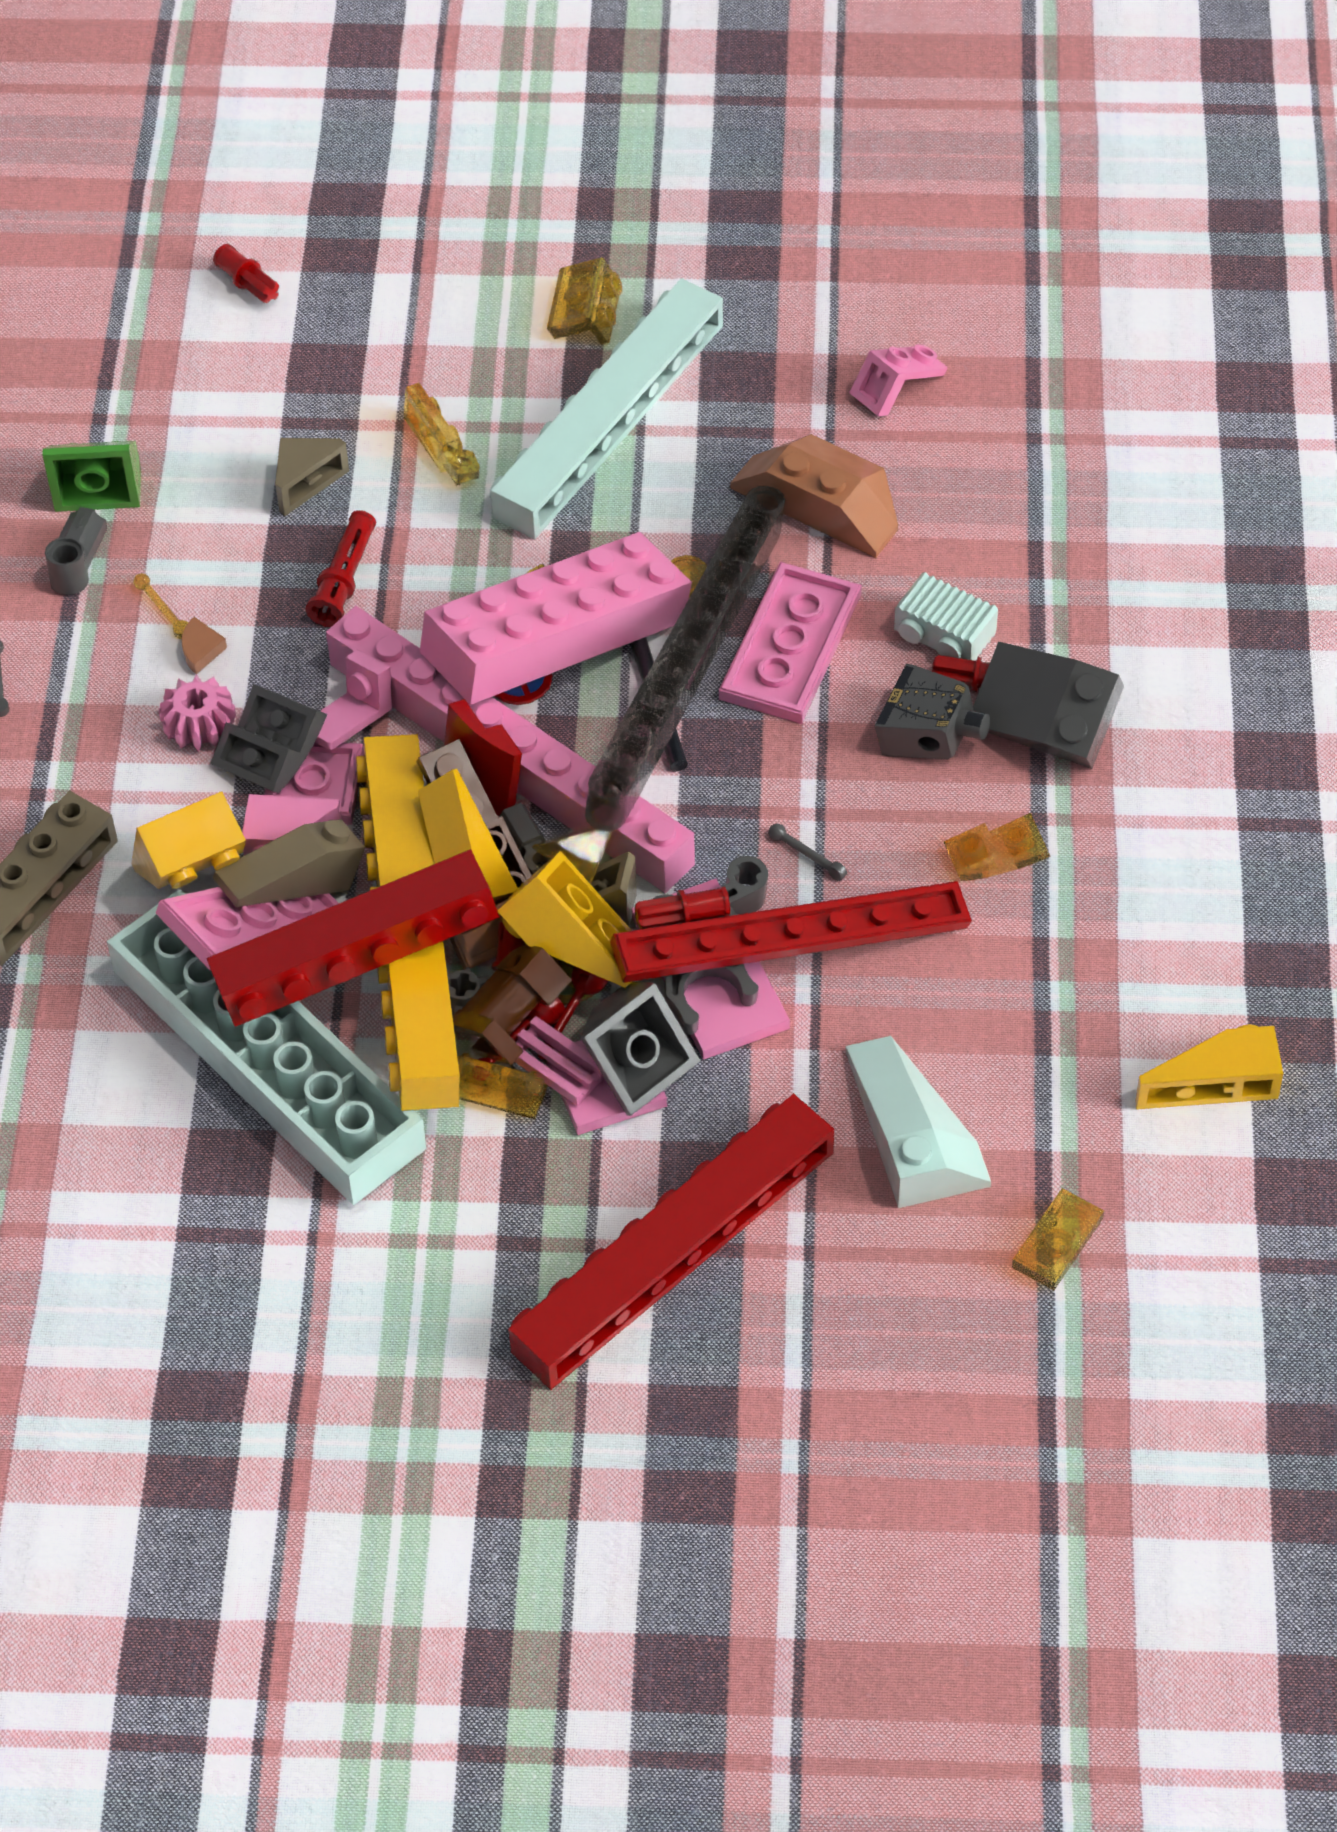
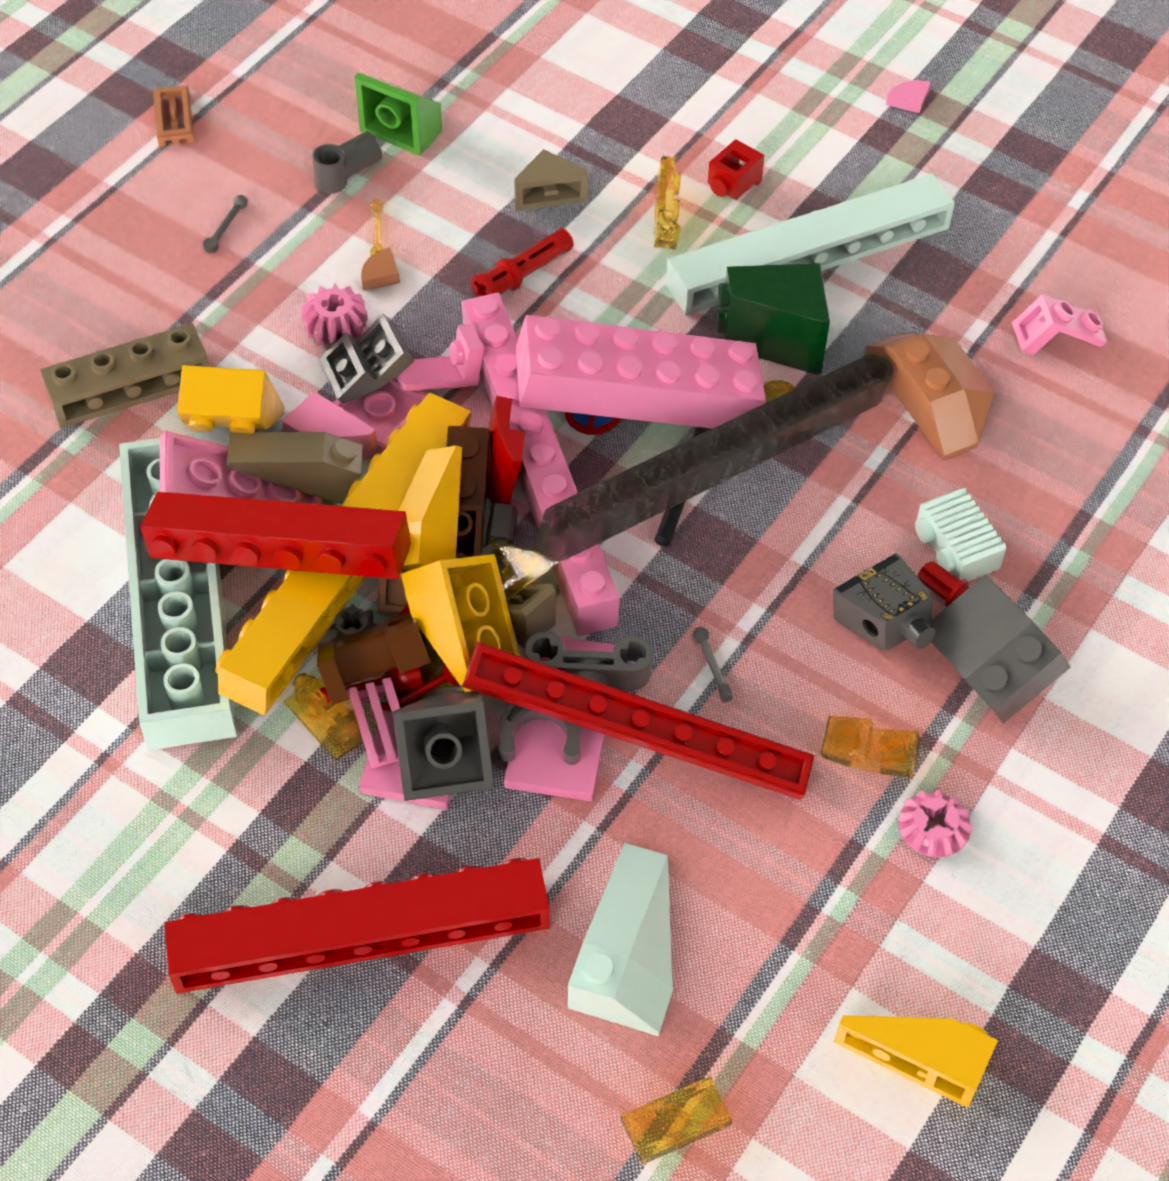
camera: 30 degrees right, 0 degrees up
(246, 273) = (617, 29): red axle -> none
(479, 376) = (731, 178): none -> red brick
(585, 300) = (852, 160): clear yellow bracket -> none
(591, 204) = (909, 95): none -> bright pink tile
(636, 488) = (779, 311): none -> dark green slope
(682, 908) = (554, 652): red axle -> none
(790, 642) = (822, 491): bright pink tile -> none
(1114, 890) = (938, 840): none -> bright pink gear

